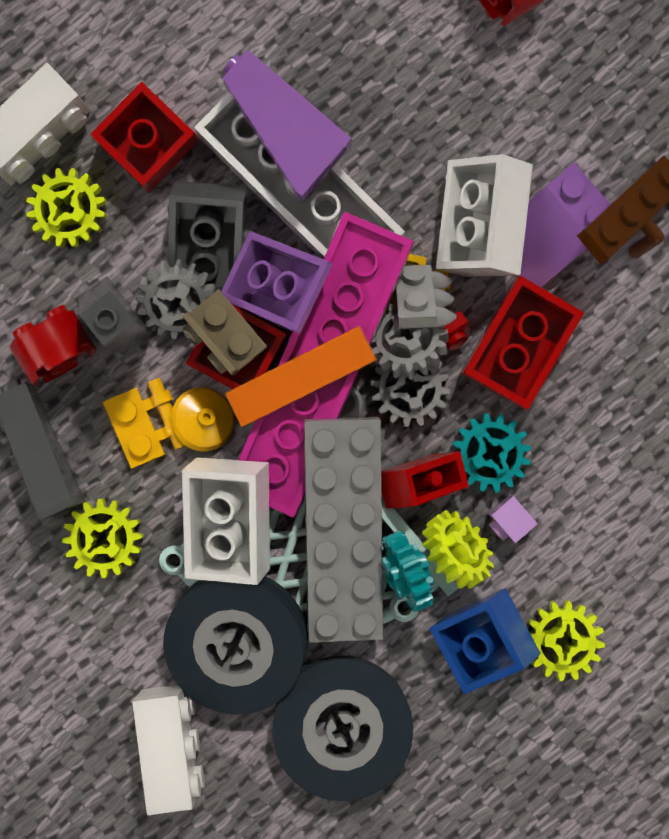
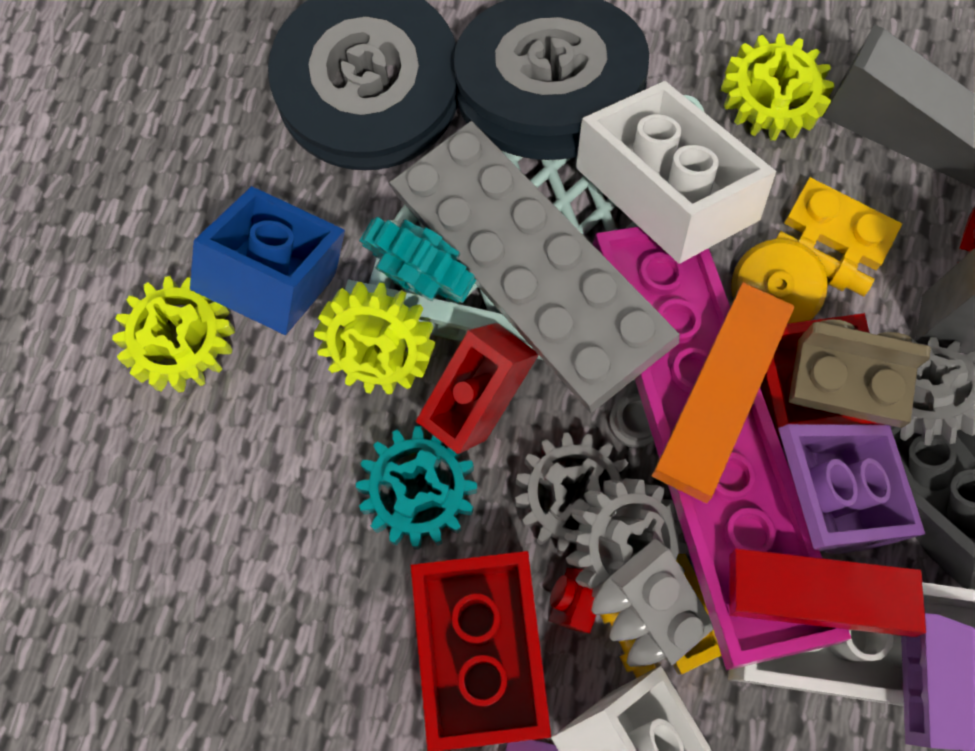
camera: 145 degrees right, 15 degrees down
(340, 240) = (826, 593): none -> red tile
(511, 520) = (334, 425): lavender plate -> none

